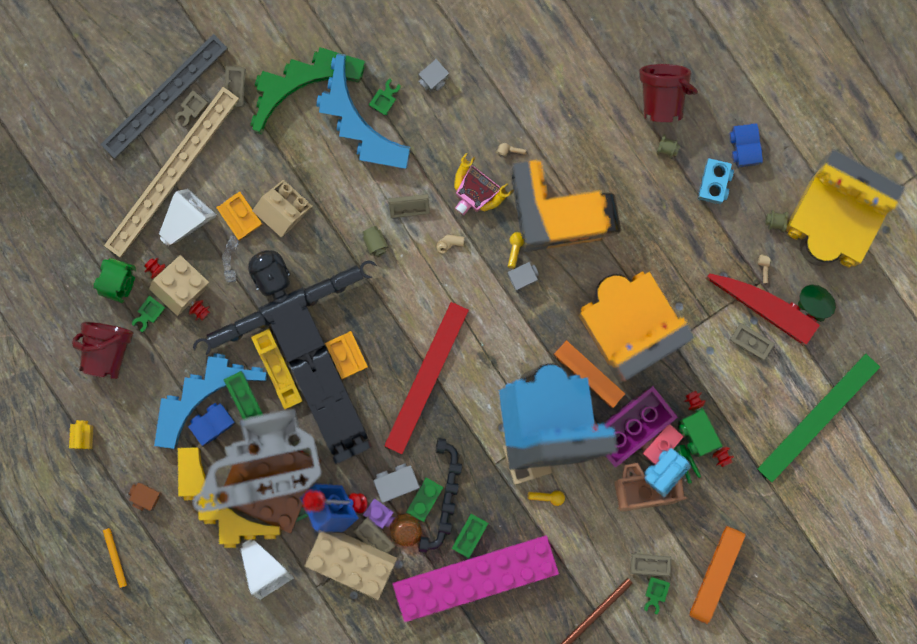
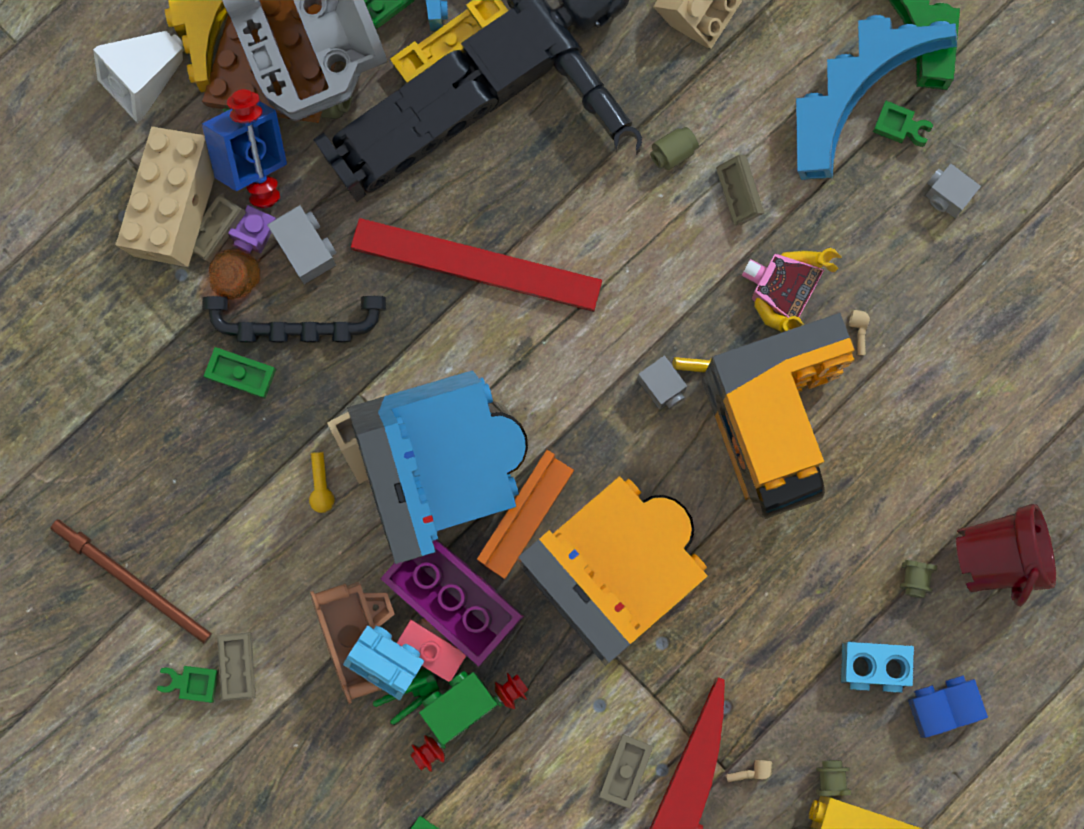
camera: 85 degrees right, 5 degrees down
(346, 355) = (490, 137): light orange plate -> none
(424, 499) = (286, 295): green plate -> none
(448, 241) = (695, 260): tan arm -> none
(475, 578) = (173, 392): dark pink brick -> none
(717, 575) = (236, 778): orange beam -> none

